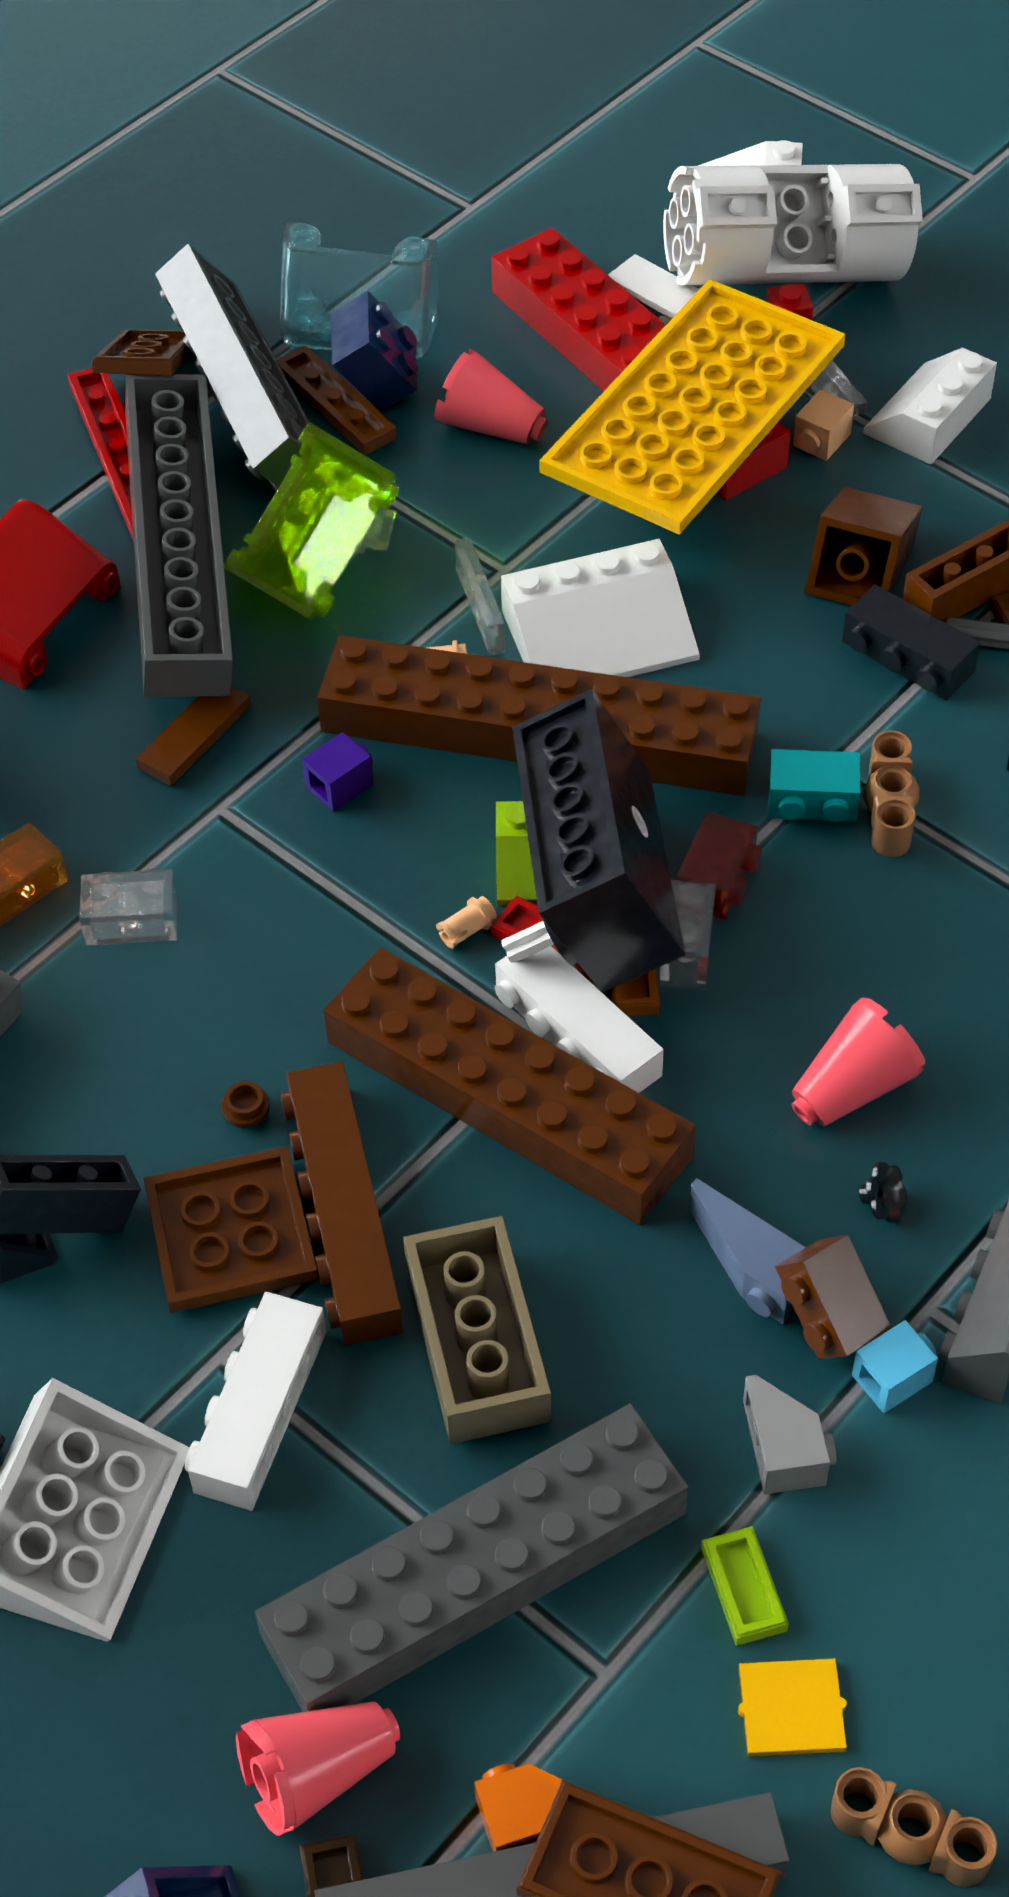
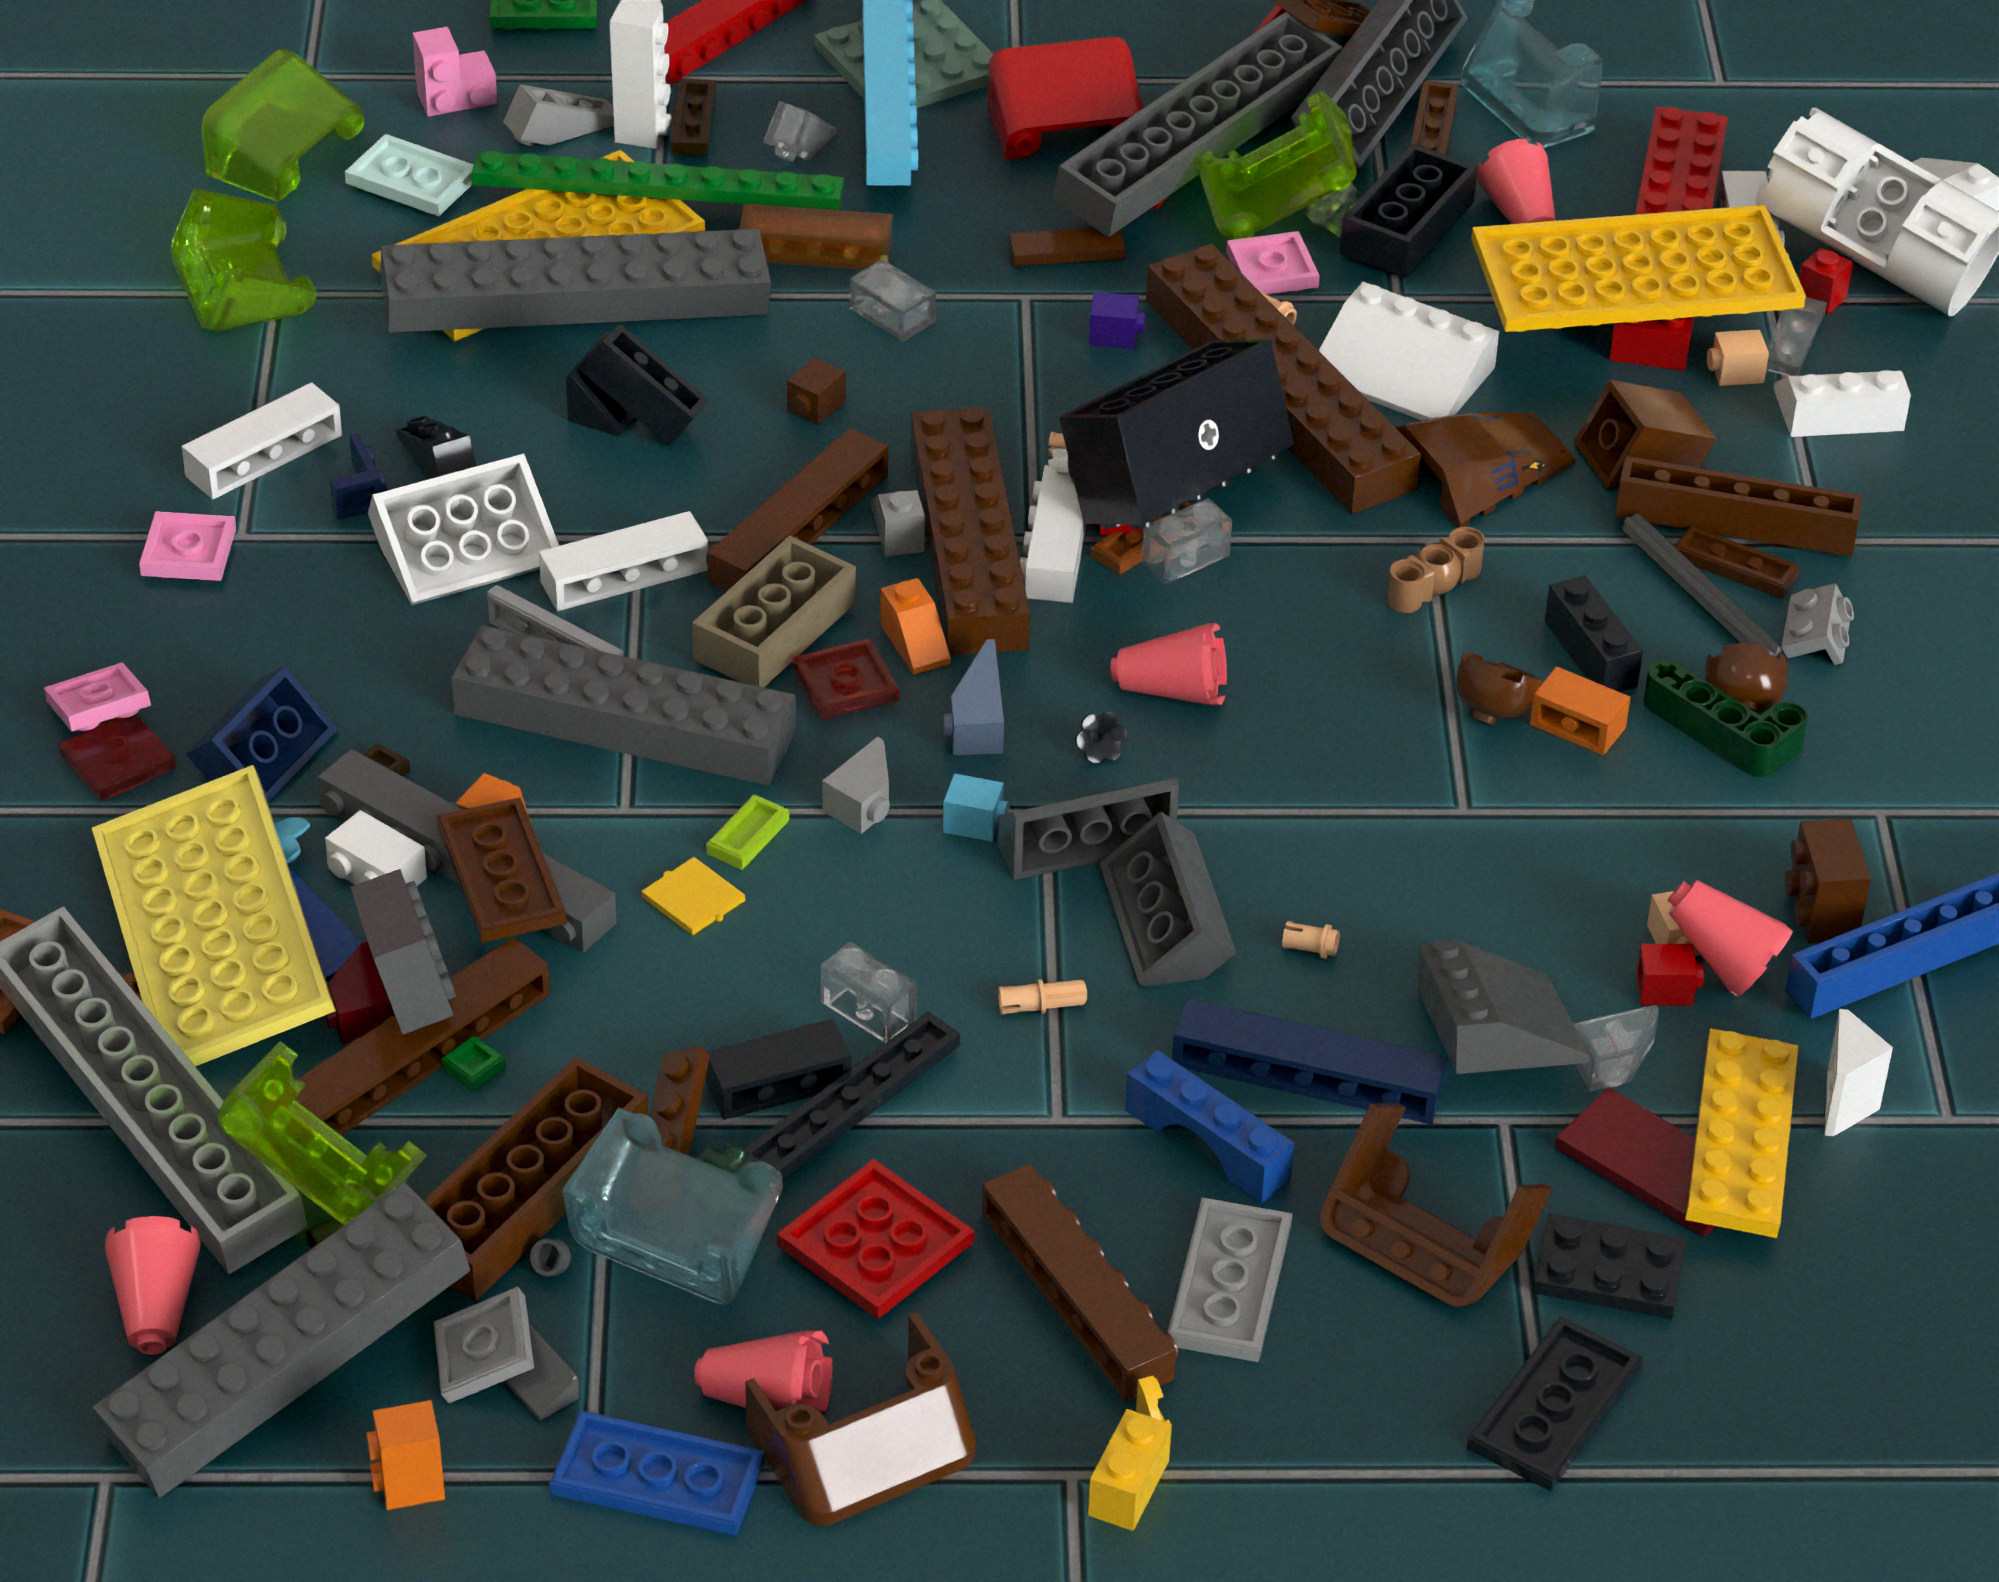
camera: 45 degrees right, 10 degrees down
(187, 1058) = (816, 391): none -> reddish brown brick
(230, 1229) = (718, 479): reddish brown plate -> none
(245, 1104) = (816, 436): reddish brown plate -> none
(298, 1547) = (521, 616): none -> light grey tile
(312, 1758) = (429, 708): coral cone -> none
(374, 351) = (1484, 109): dark blue brick -> none
(384, 611) = (1274, 262): none -> bright pink plate
(431, 1125) = (899, 522): none -> light grey slope
(436, 482) = (1408, 210): none -> black brick
(480, 596) = (1366, 270): clear tile -> none
(596, 1226) = (914, 626): none -> orange slope
(609, 1336) = (846, 679): none -> clear red plate
(722, 856) = (1267, 524): clear red brick -> none
(778, 653) = (1486, 458): none -> reddish brown wedge
(814, 785) = (1390, 526): teal brick -> none
(832, 1297) = (978, 737): brick -> none
(910, 642) = (1586, 507): black brick -> none
(932, 1847) = (668, 975): medium nougat piece -> none

